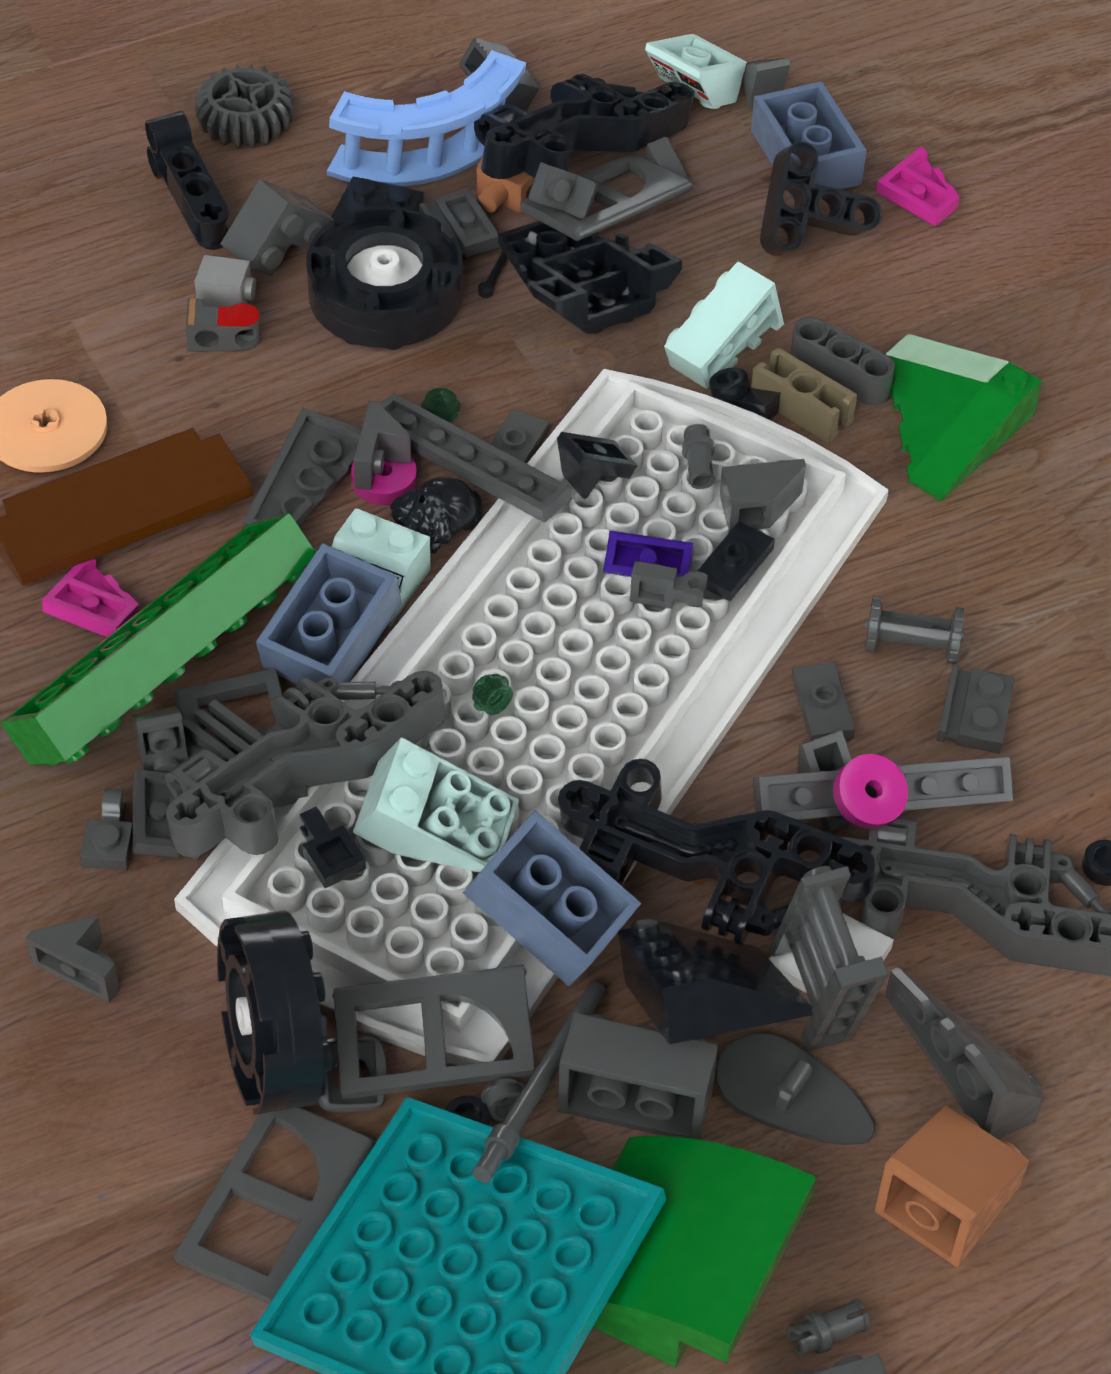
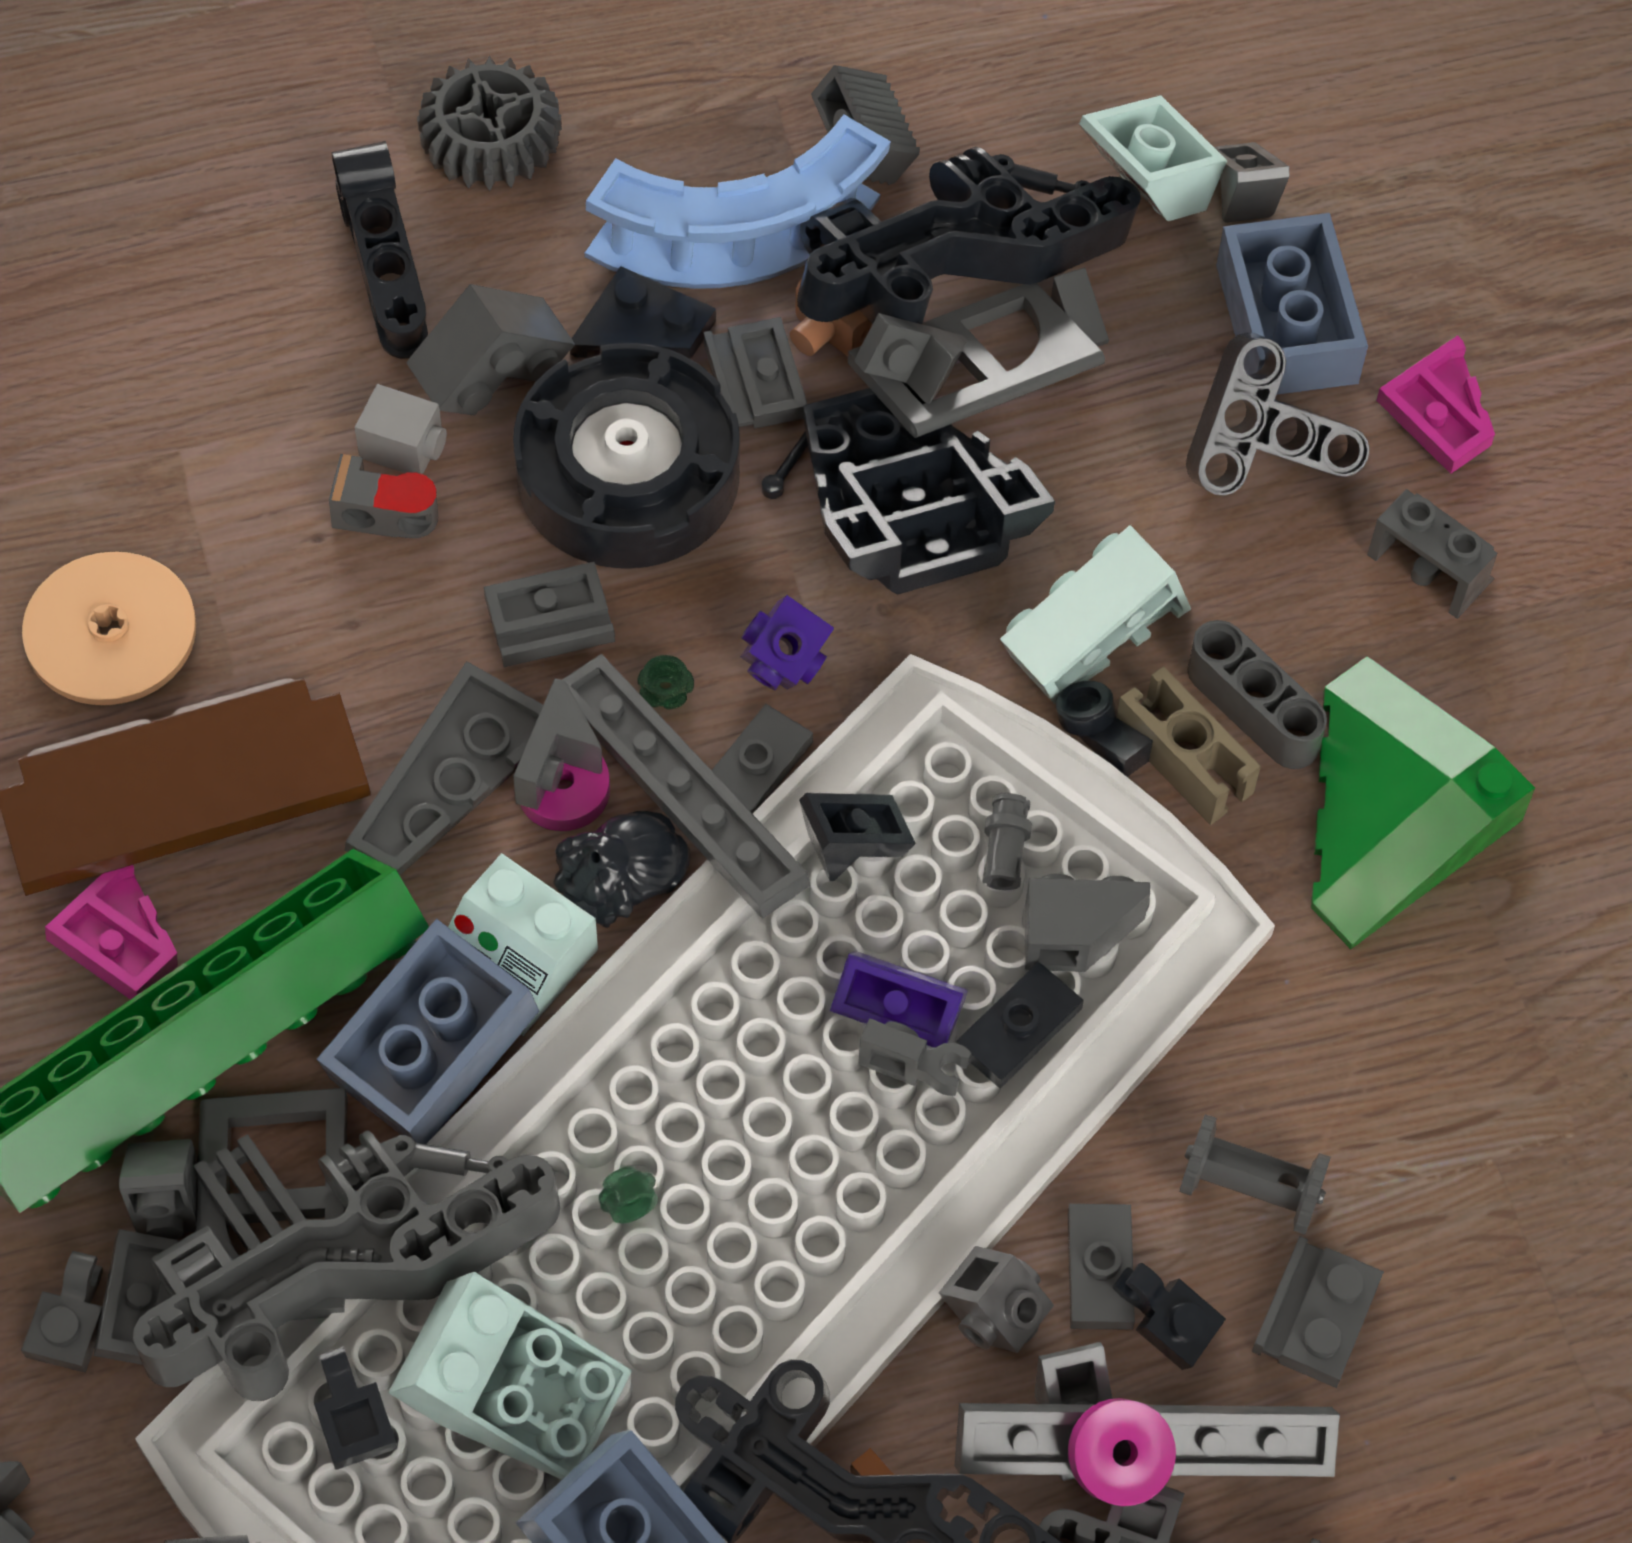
camera: 10 degrees right, 10 degrees up
(351, 377) = (549, 614): none -> dark grey plate
(519, 369) = (800, 631): none -> dark purple brick
(759, 724) = (996, 1299): none -> flat silver brick
(880, 721) = (1175, 1315): none -> black plate
(941, 259) = (1442, 546): none -> dark grey window

